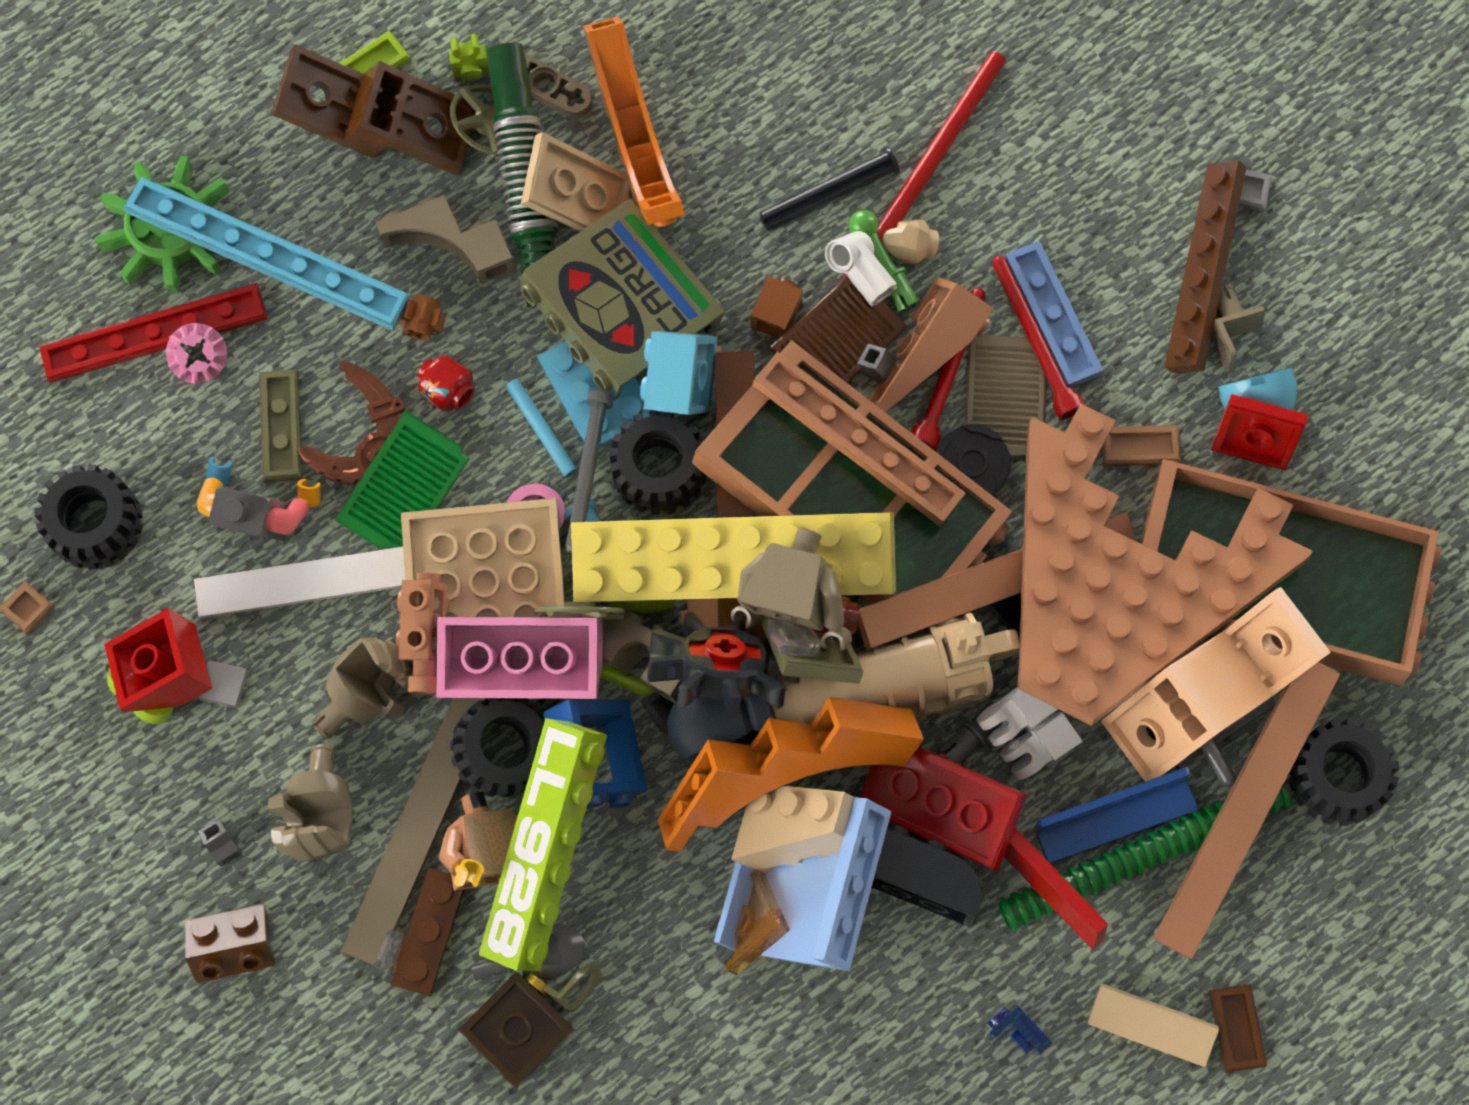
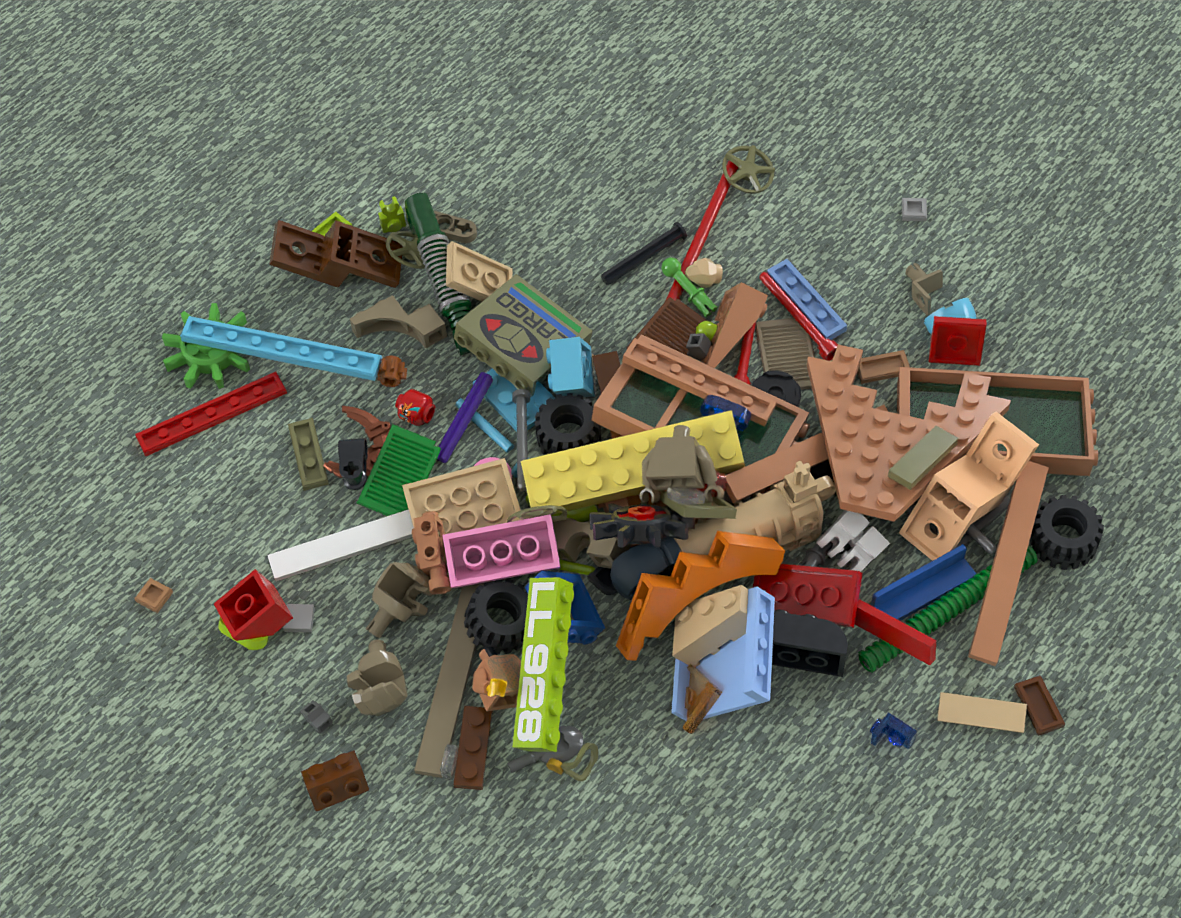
camera: 10 degrees left, 15 degrees down
(109, 537) = (192, 545): black tyre -> none
(214, 350) = (246, 430): bright pink gear -> none
(252, 512) = (299, 503): torso -> none
(338, 452) = (353, 459): none -> black piece
(513, 411) = (464, 416): none -> dark purple axle
(516, 1030) = (547, 797): dark brown plate -> none
(631, 123) = (505, 232): orange arch -> none
(776, 307) = (625, 325): dark orange brick -> none
(855, 257) = (677, 290): white piece -> none
(886, 497) = (714, 404): none -> clear blue beam
(894, 339) = (707, 328): none -> lime hinge
(1016, 73) = (748, 169): none -> olive wheel
(1156, 633) = (923, 457): none -> tile
(1205, 267) = (897, 257): reddish brown plate -> none

